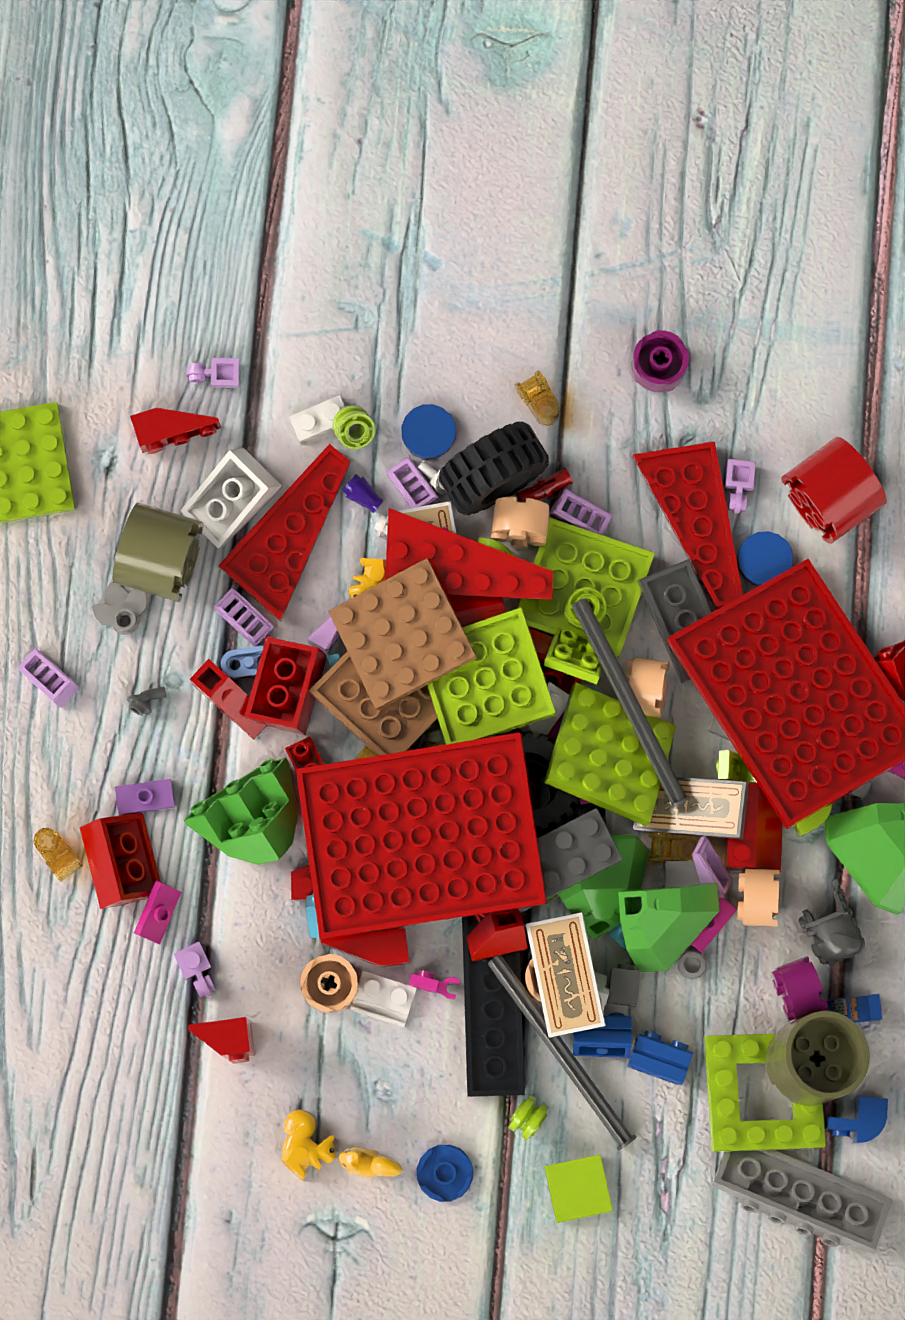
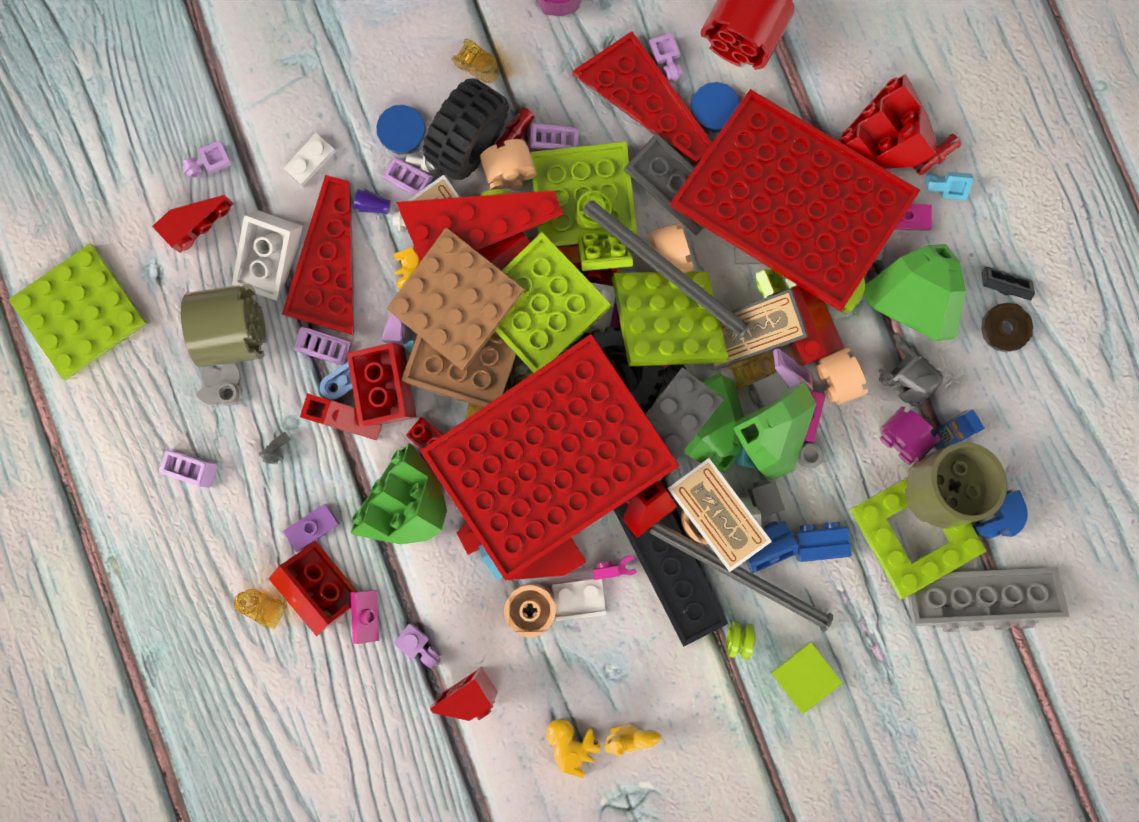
camera: 20 degrees left, 5 degrees up
(345, 419) = (348, 157): lime wheel -> none
(451, 1167) = (693, 707): blue tile -> none

